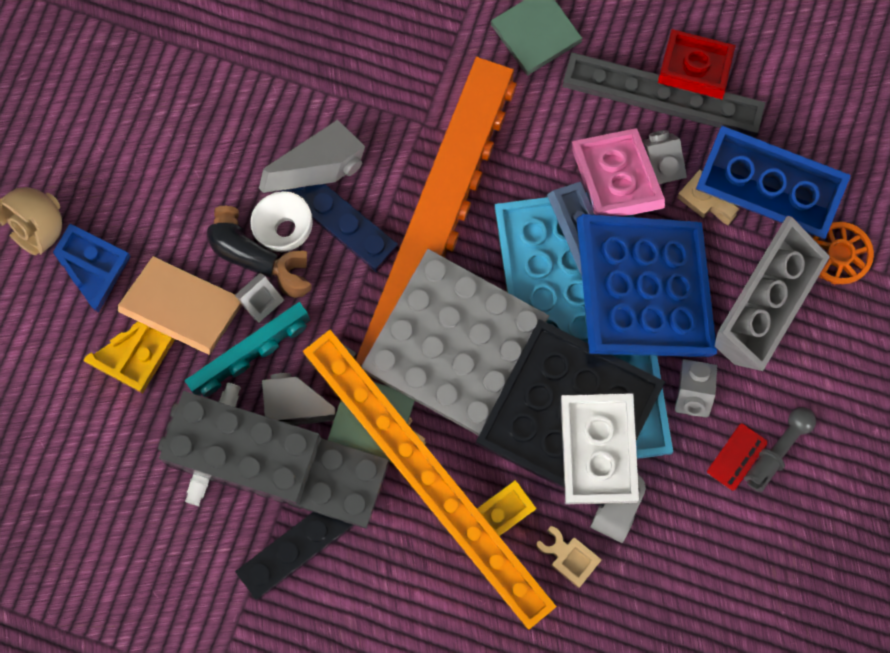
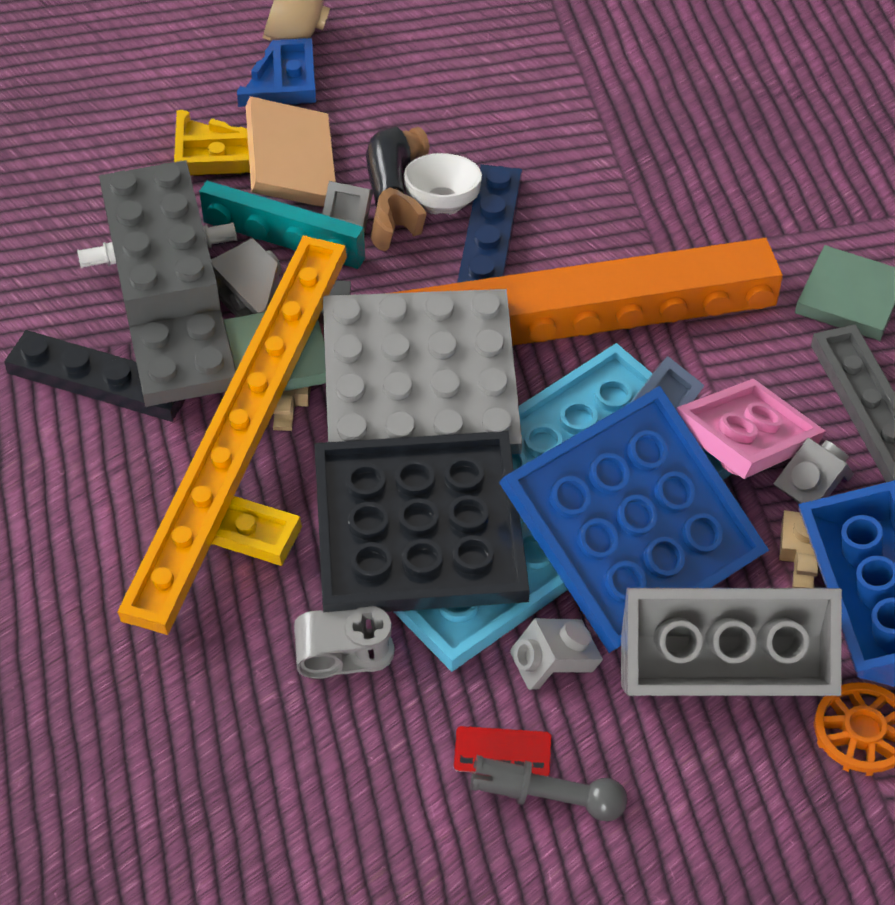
camera: 55 degrees right, 25 degrees down
(315, 161) = (527, 167): light grey slope -> none
(572, 560) = (243, 629): tan plate -> none
(599, 449) = (388, 554): white plate -> none

